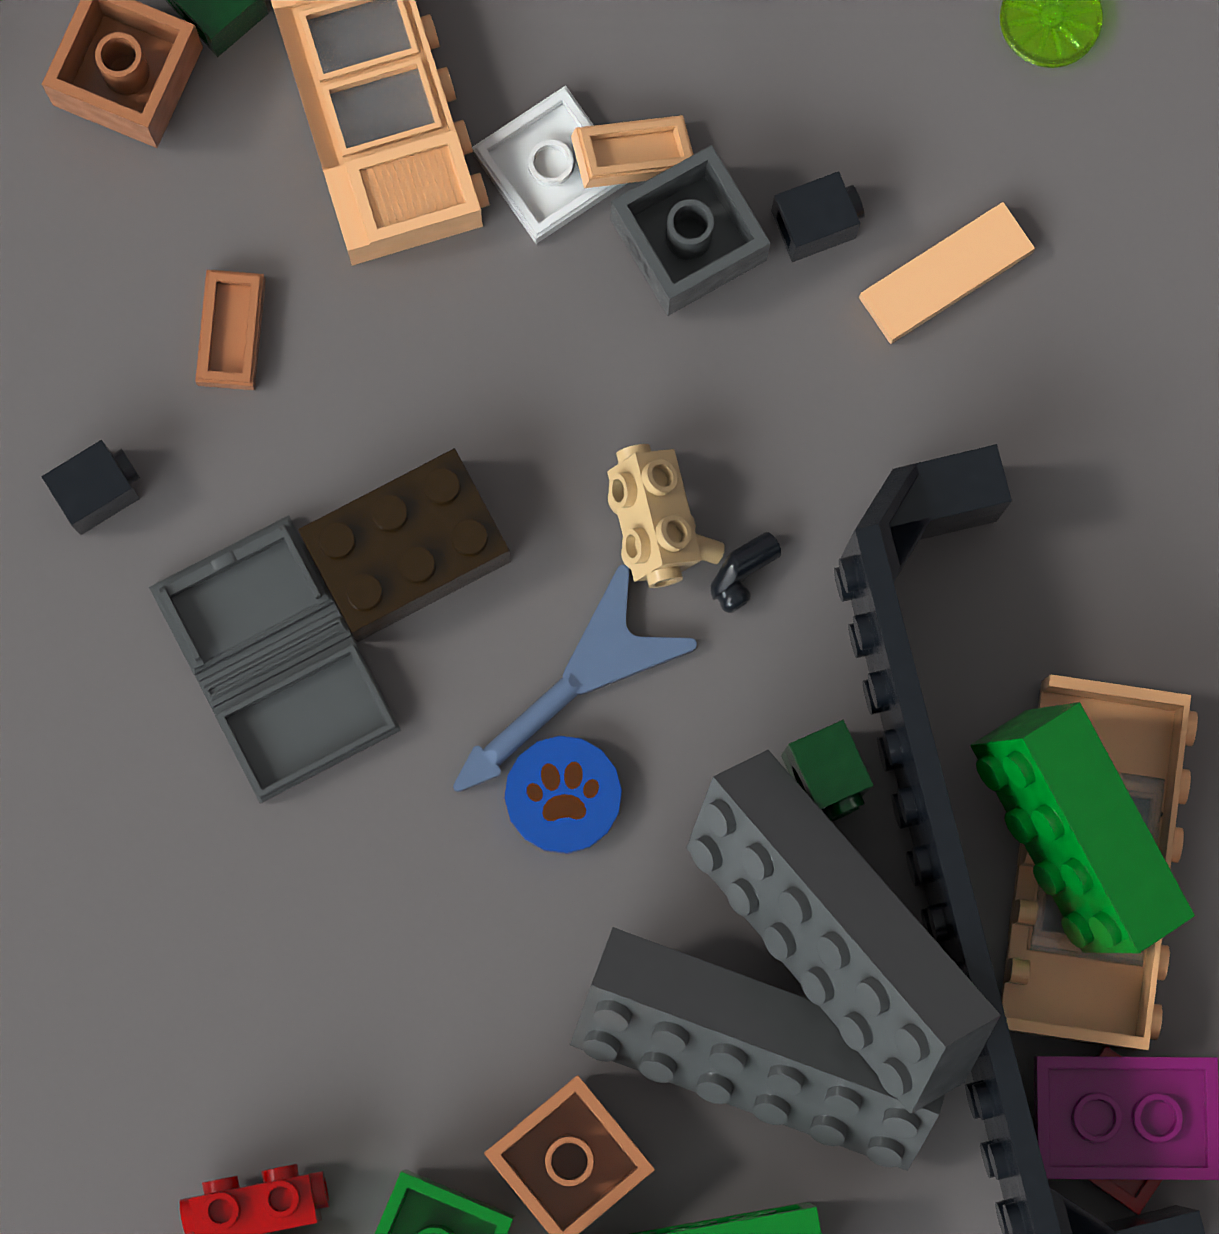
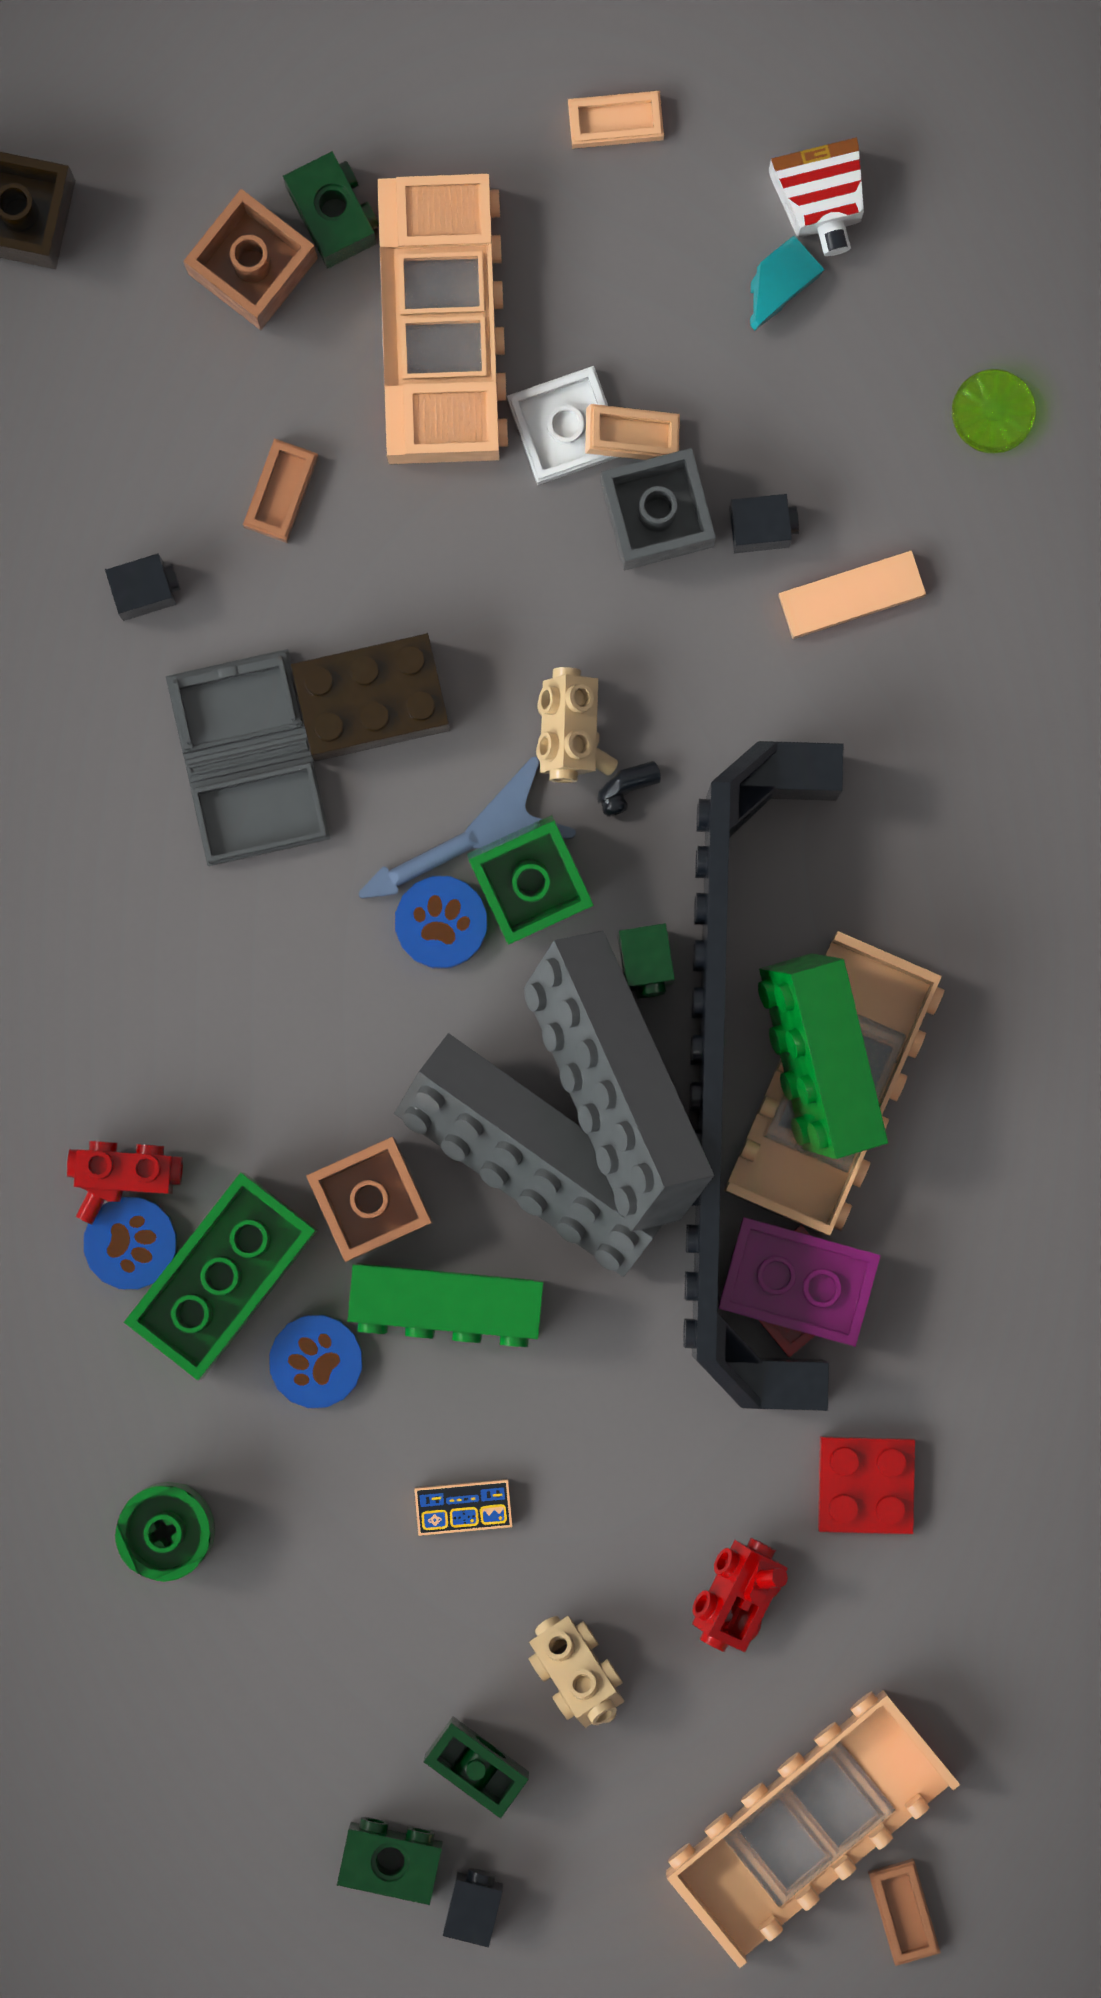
camera: 20 degrees right, 5 degrees up
(659, 712) = (530, 879): none -> green brick

